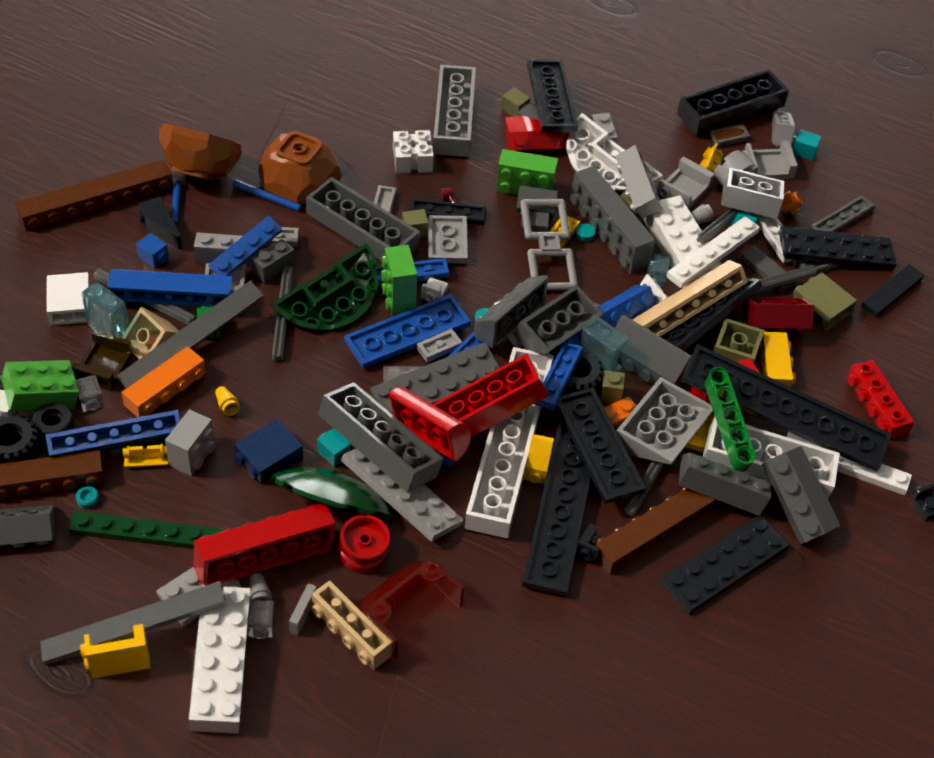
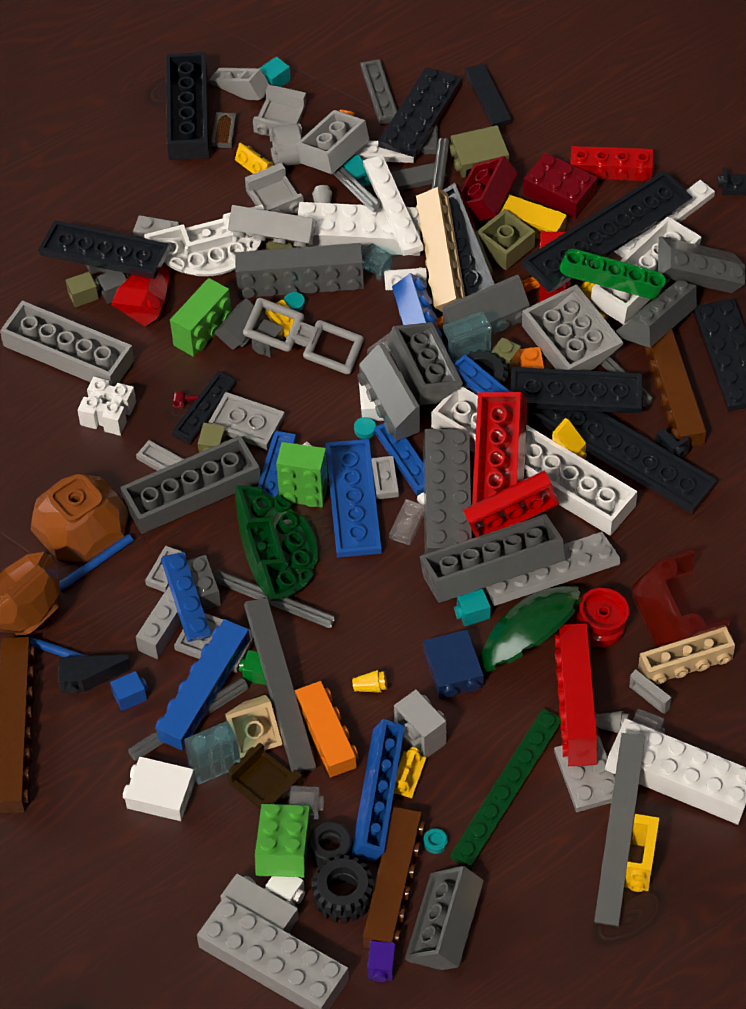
camera: 60 degrees left, 5 degrees up
(826, 368) = (560, 185): none -> dark red brick

